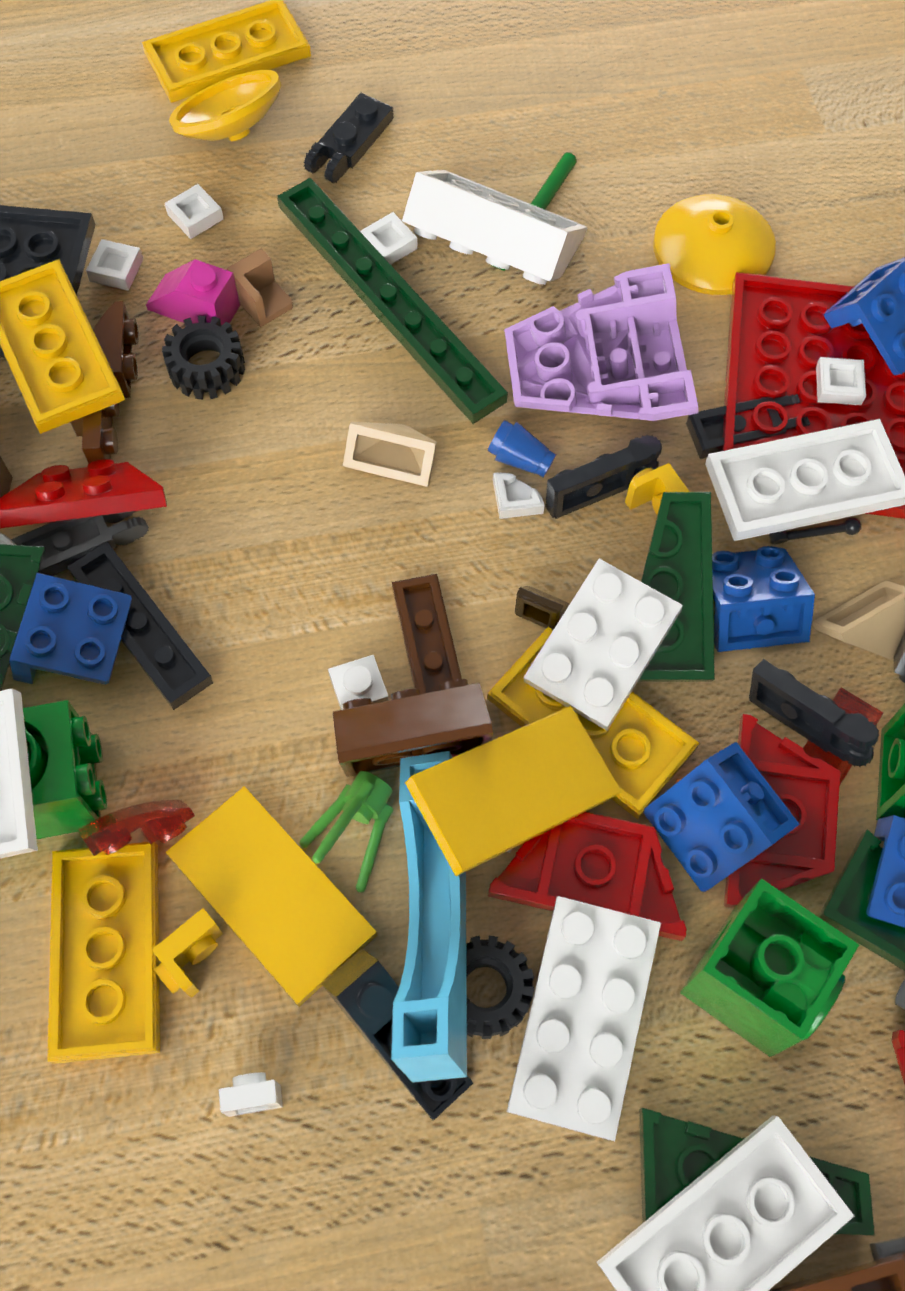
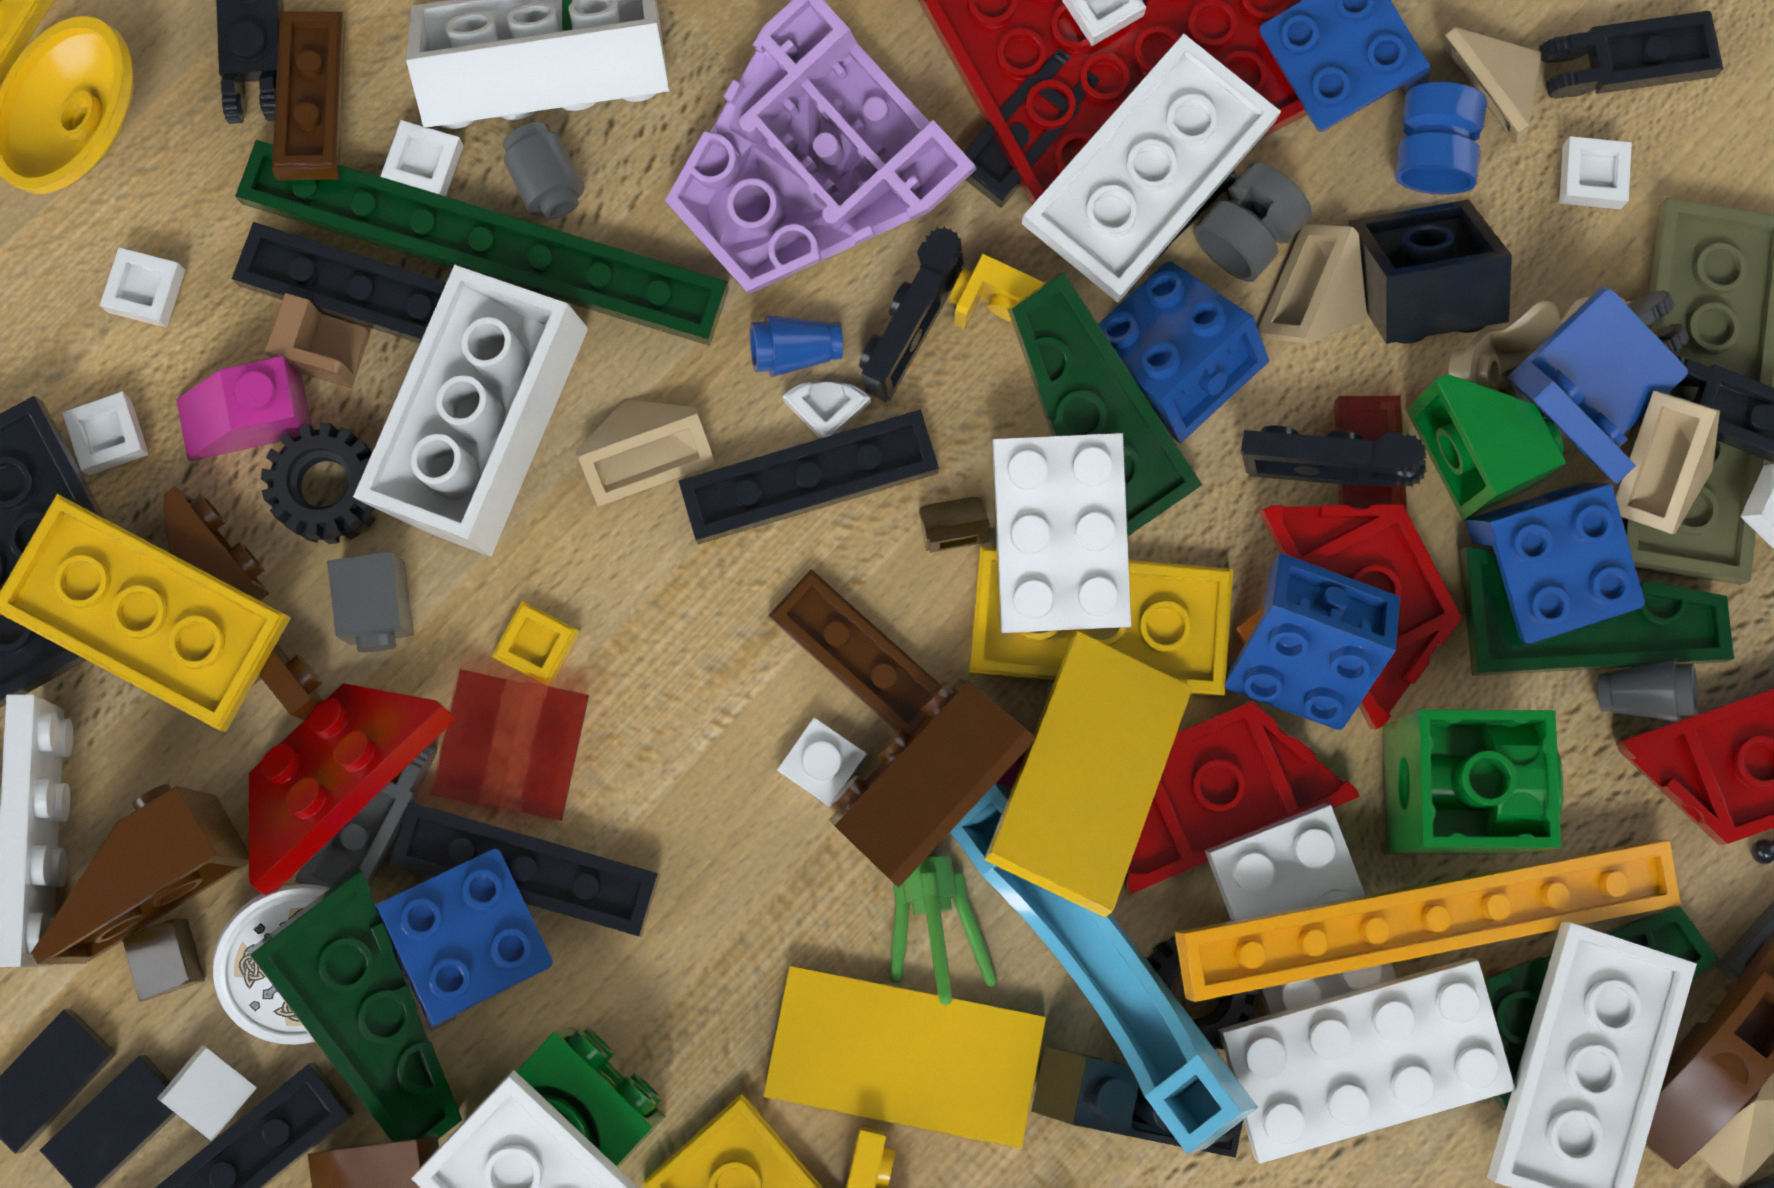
camera: 35 degrees left, 15 degrees up
(155, 820) = (725, 1071): clear red slope -> none
(177, 427) = (370, 600): none -> dark grey brick
(188, 554) = (510, 745): none -> clear red slope
(248, 513) = (536, 644): none -> yellow tile
(307, 282) = (338, 282): none -> black plate
(312, 366) = (472, 409): none -> white slope
(354, 175) = (309, 96): none -> reddish brown tile
(449, 280) = (542, 171): none -> dark grey brick
(475, 523) = (808, 477): none -> black plate
(569, 1112) = (1368, 1059): none -> white plate
(680, 1044) = (1425, 919): none -> light orange plate
(860, 550) = (1260, 213): none -> dark grey wheel

